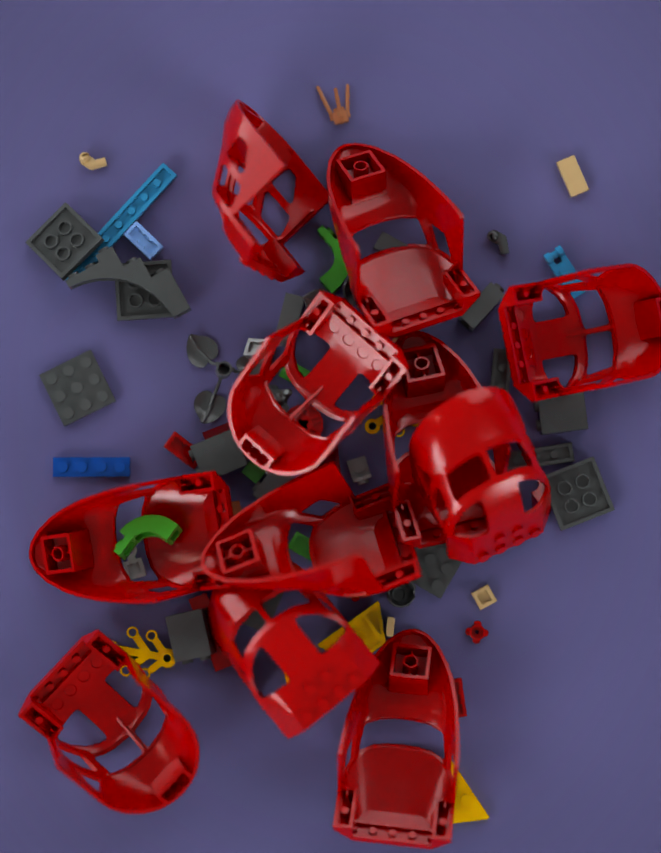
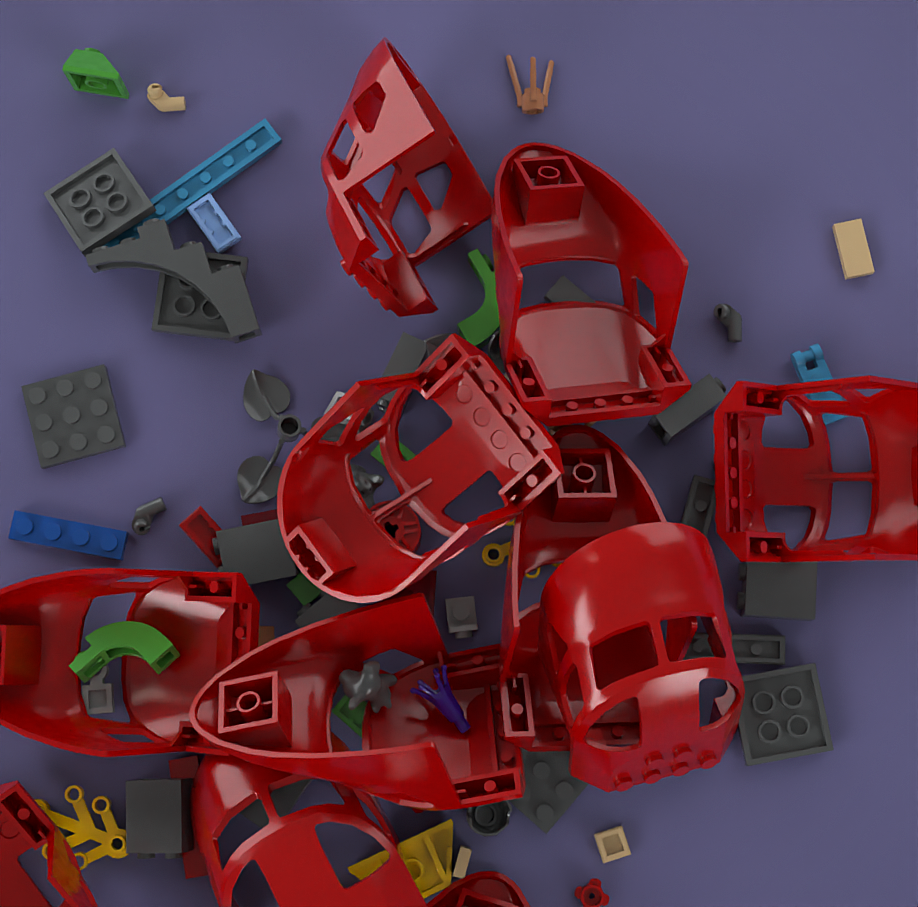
camera: 10 degrees right, 5 degrees down
(41, 153) = (93, 73): none -> bright green slope
(138, 444) = (144, 515): none -> dark grey arm
(308, 526) = (368, 686): none -> dark grey animal
(358, 526) = (443, 699): none -> dark purple piece

